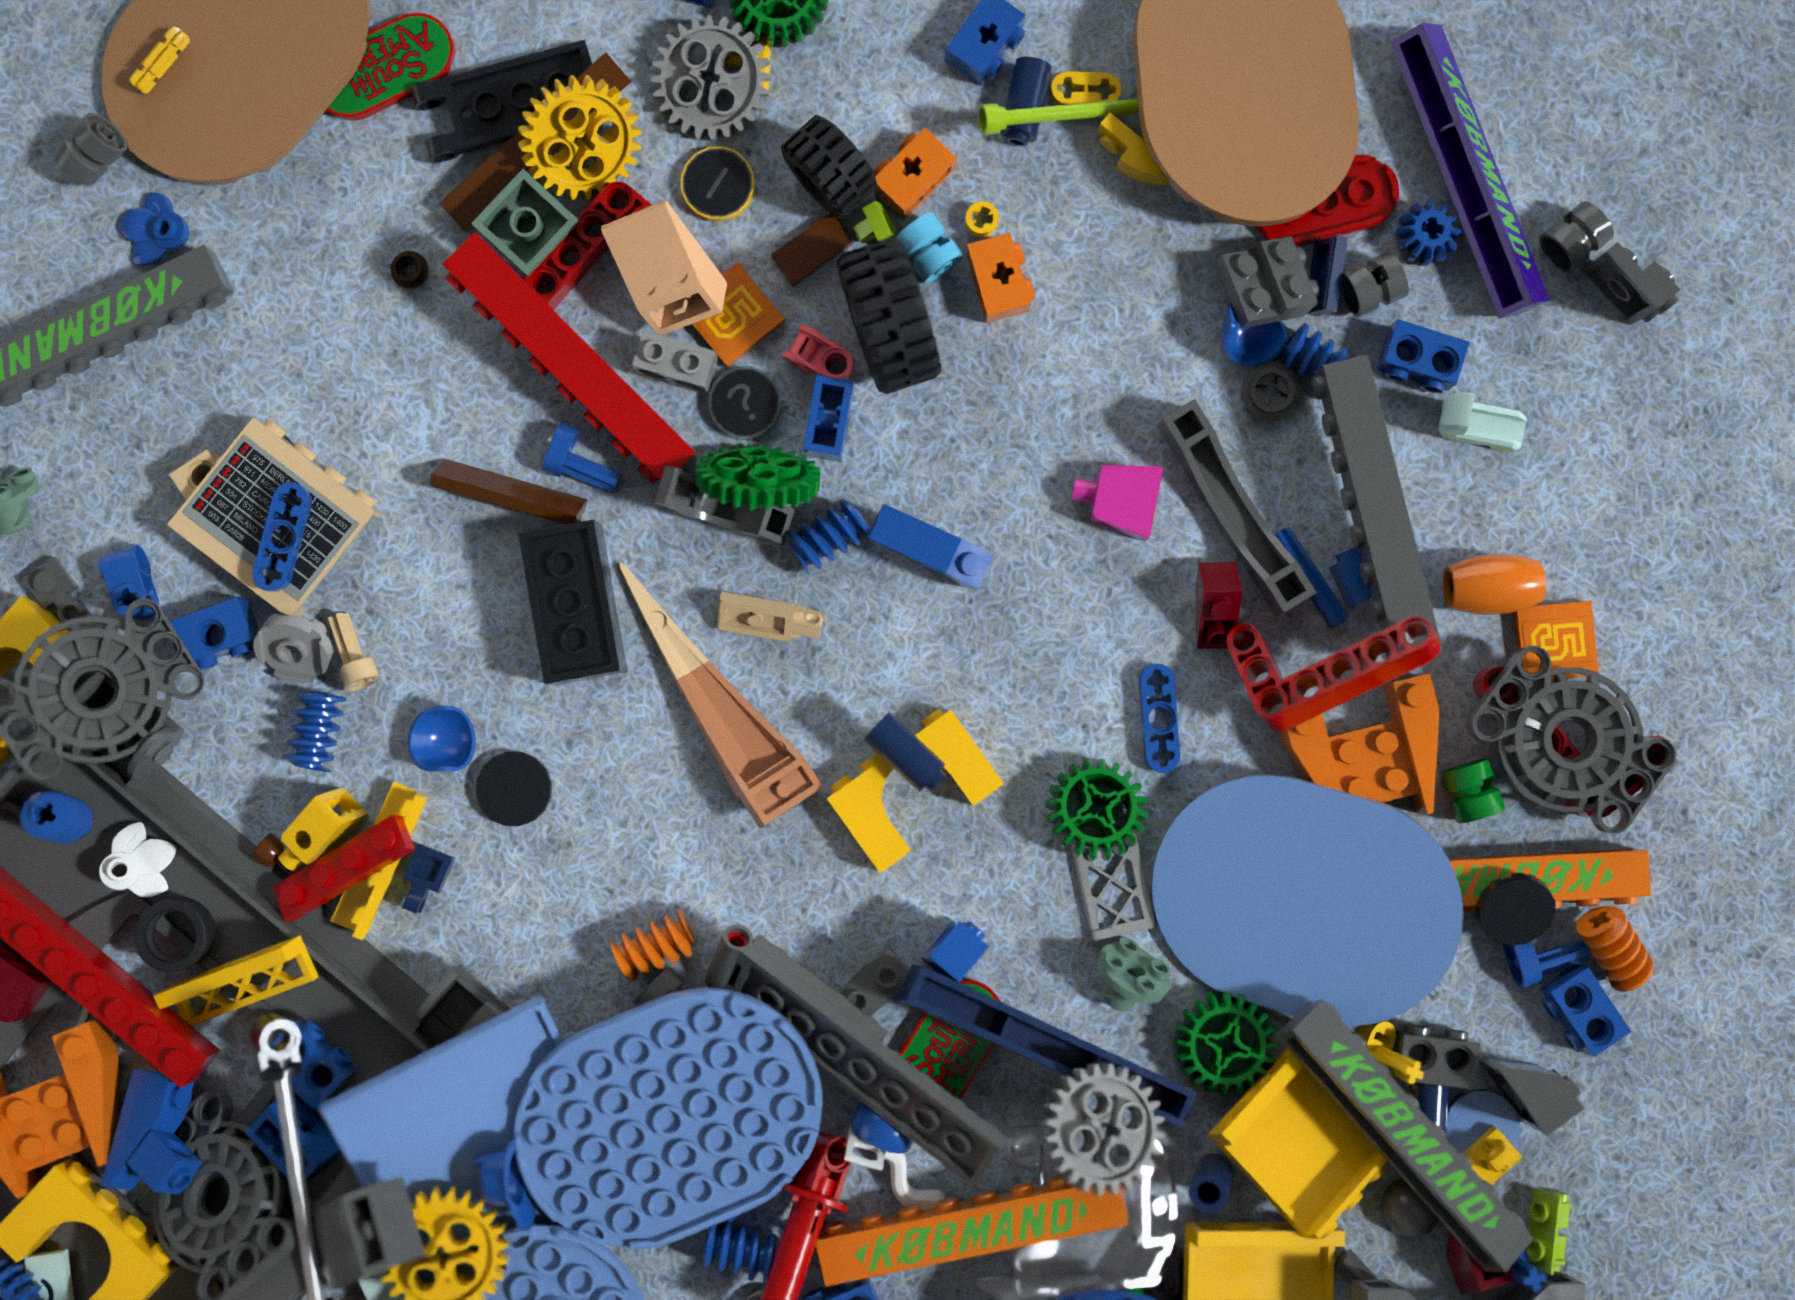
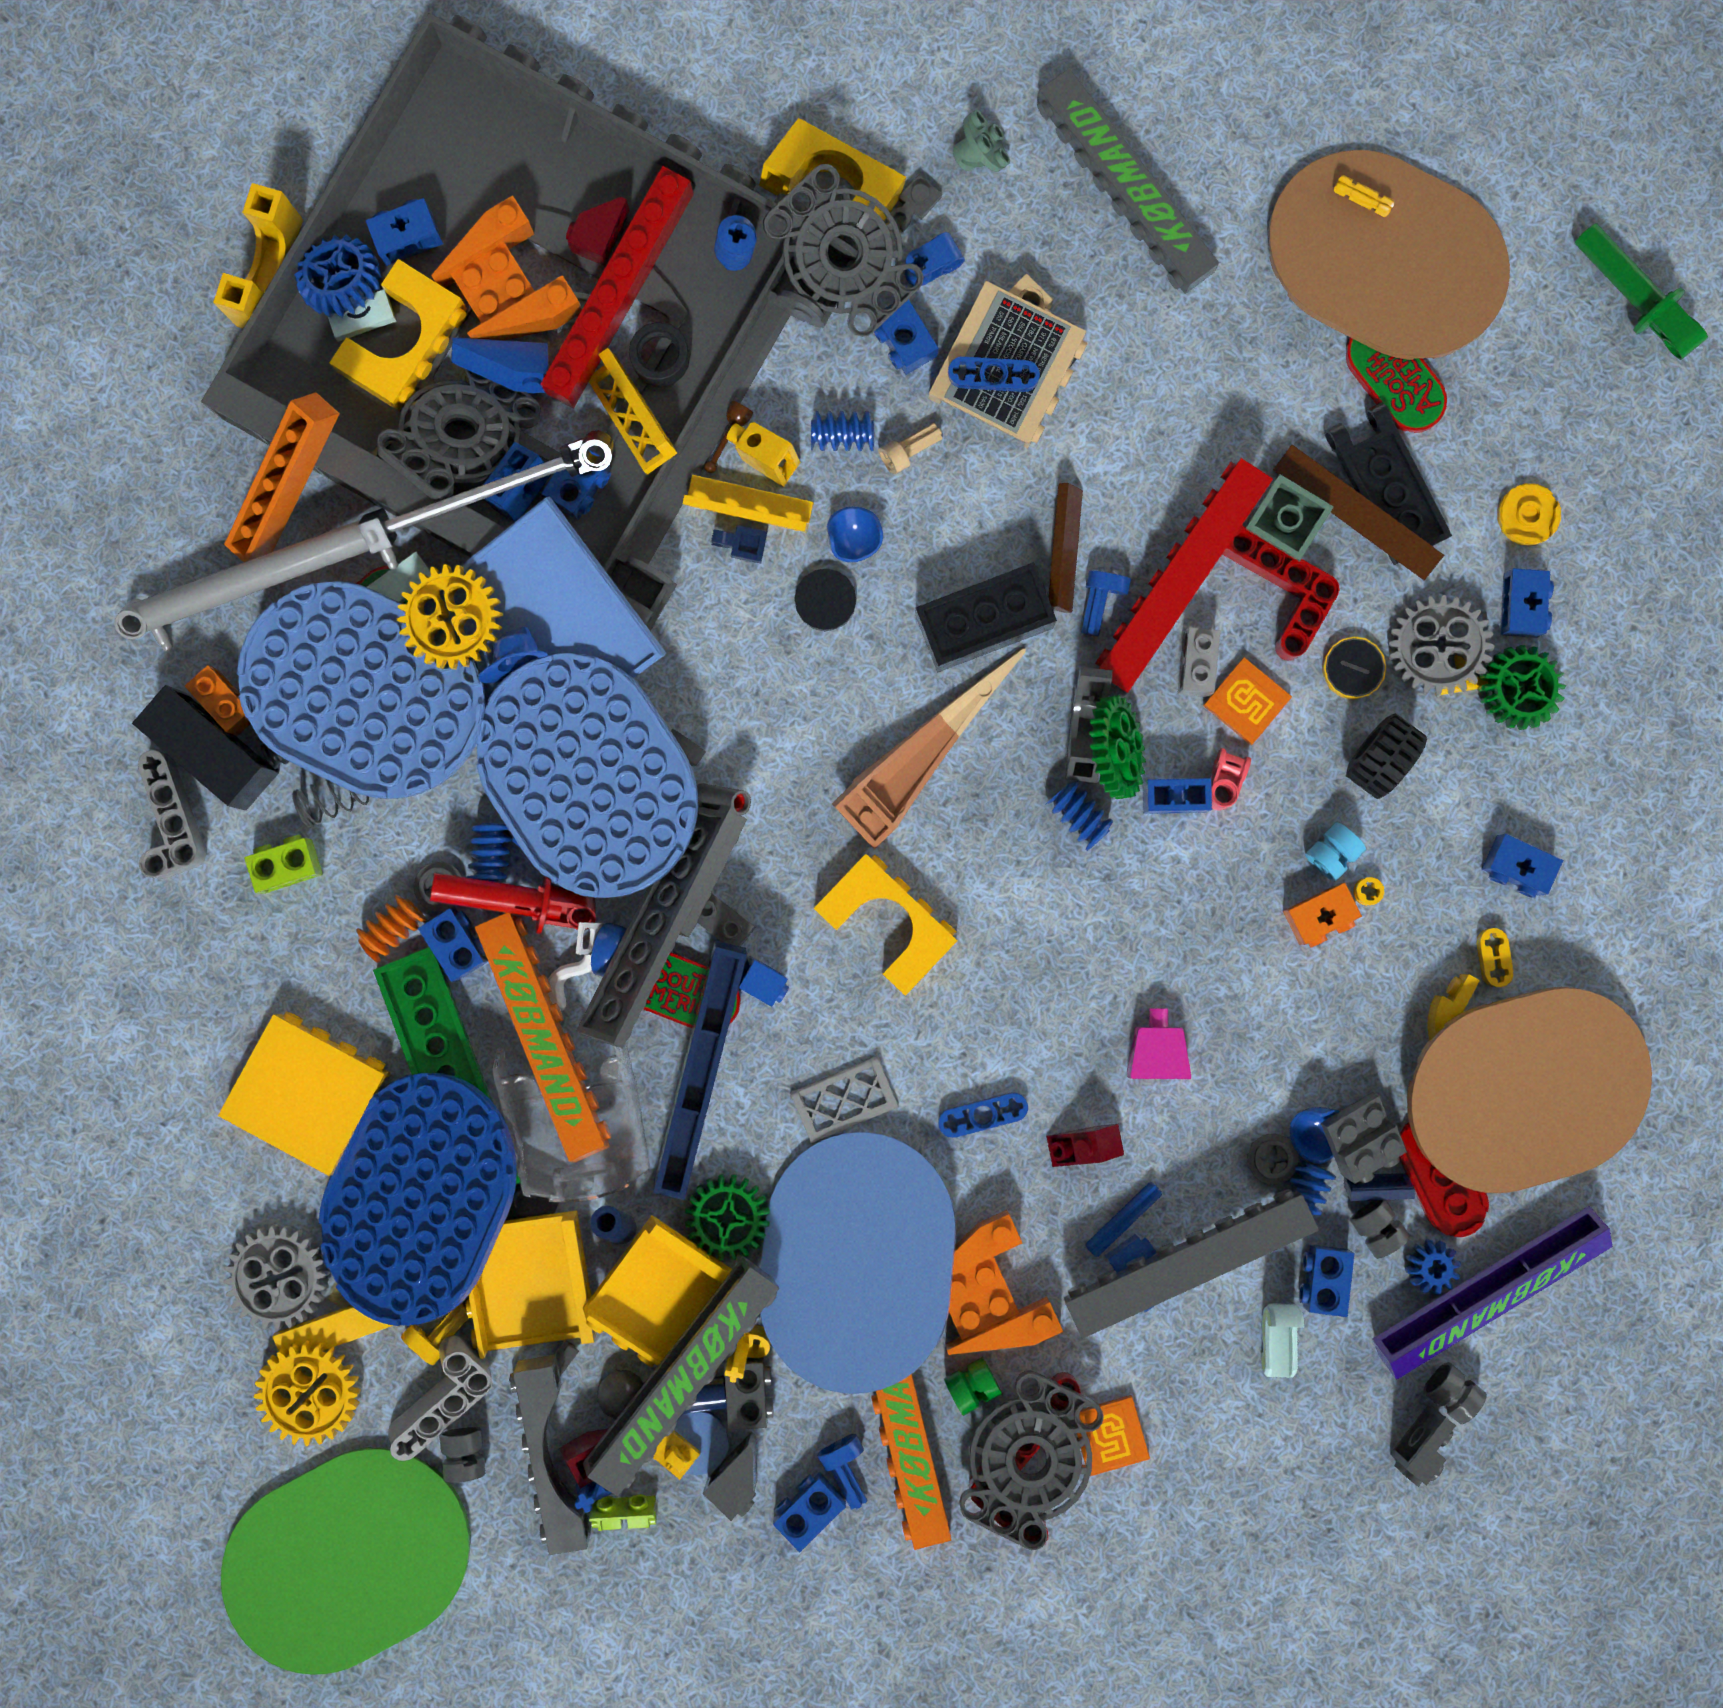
camera: 85 degrees right, 0 degrees up
(90, 149) = (1278, 156): dark grey wheel -> none
(143, 862) = (714, 316): white plate -> none
(149, 229) = (1223, 215): blue plate -> none
(164, 1163) = (478, 383): blue brick -> none
(303, 634) = (918, 405): light grey plate -> none
(343, 867) = (737, 476): red plate -> none
(366, 1232) = (456, 553): dark grey slope -> none
(401, 261) = (1235, 422): dark brown plate -> none
(548, 127) = (1371, 521): yellow gear -> none
(654, 946) = (720, 737): orange piece -> none
(665, 268) = (1273, 638): light nougat slope -> none
(744, 403) = (1176, 725): black tile -> none
(767, 618) = (1003, 777): tan hinge -> none
(812, 249) = (1315, 755): reddish brown tile -> none
(876, 225) = (1346, 805): lime tile -> none
(889, 315) = (1272, 828): black tyre -> none
(906, 753) = (915, 910): dark blue brick -> none
(930, 547) = (1087, 899): blue slope -> none
(933, 165) = (1379, 826): orange brick -> none
(995, 118) = (1454, 885): lime piece -> none
(1026, 90) = (1476, 909): dark blue brick -> none
(1072, 1115) = (635, 1153): light grey gear -> none
(1089, 795) = (887, 1084): green gear -> none
(1131, 975) = (768, 1129): sand green plate -> none
(1210, 472) = (1139, 1171): dark grey arch -> none
(1327, 672) = (1048, 1244): red beam -> none
(1494, 584) = (1147, 1373): orange piece -> none
(1515, 909) = (882, 1437): black tile -> none
(1616, 947) = (866, 1528): orange piece -> none

